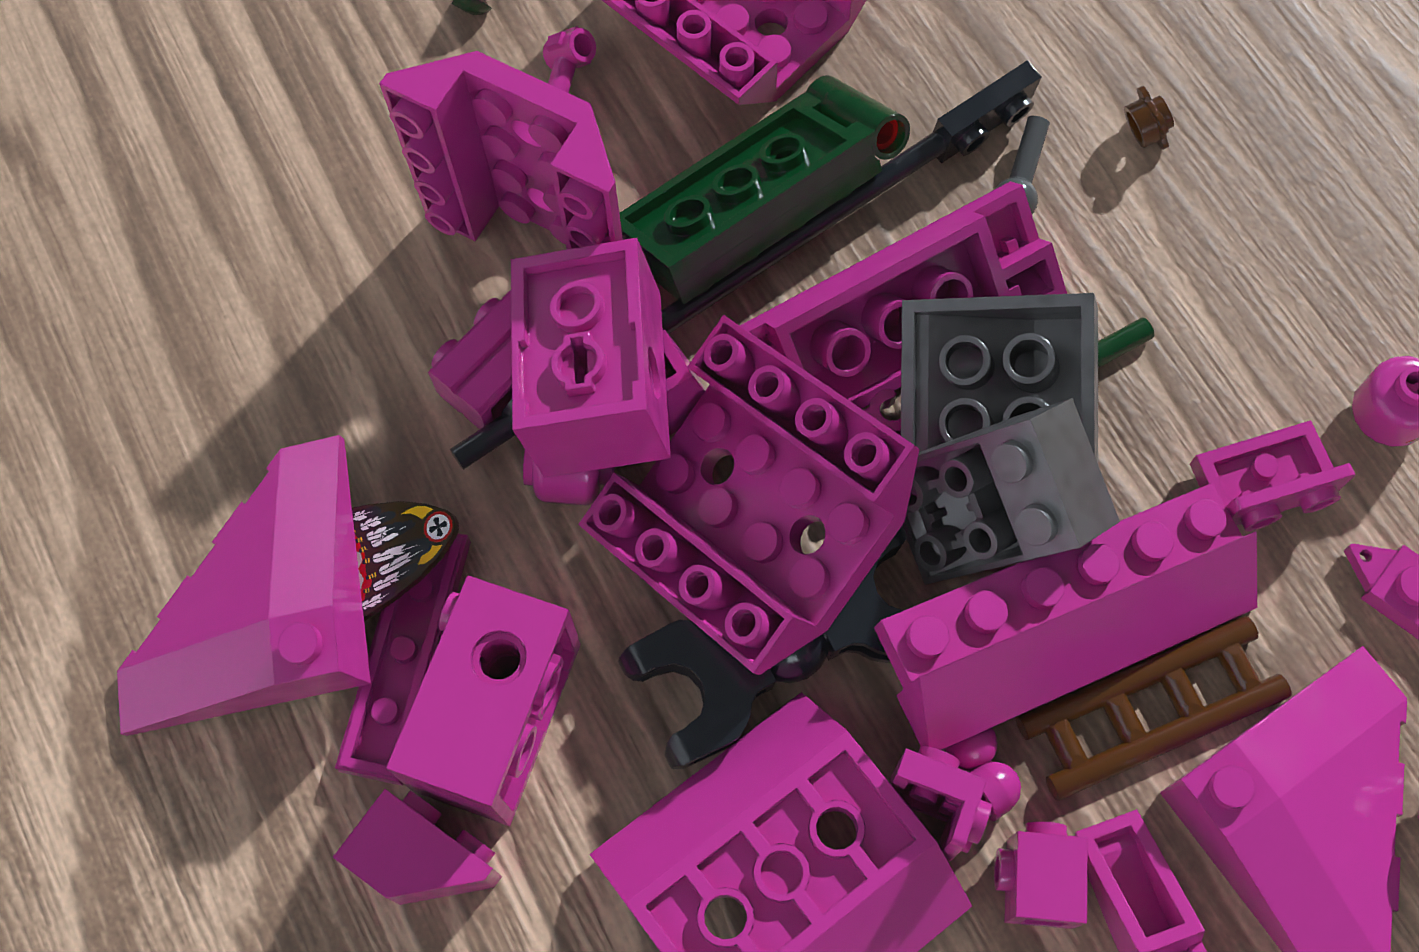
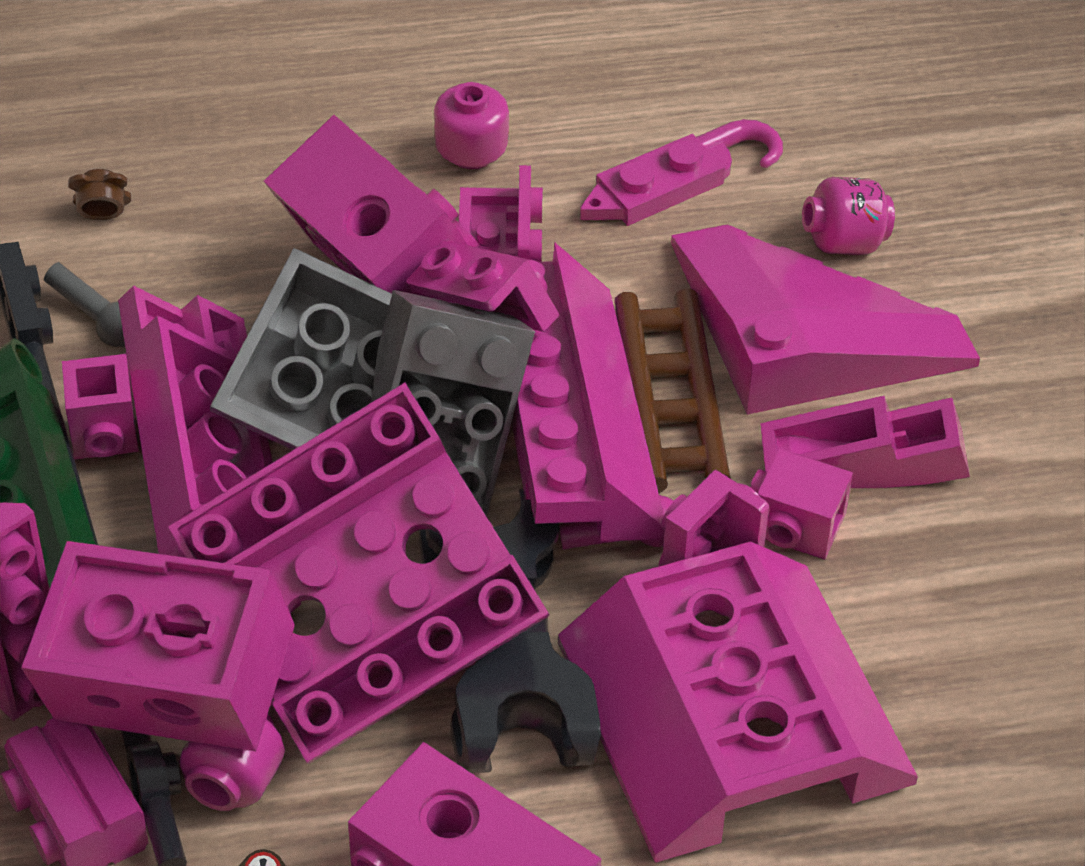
camera: 75 degrees left, 20 degrees down
(886, 211) = (99, 406): none -> dark pink brick
(1130, 475) = (485, 282): none -> dark pink bracket
(1193, 359) = (363, 208): none -> dark pink piece

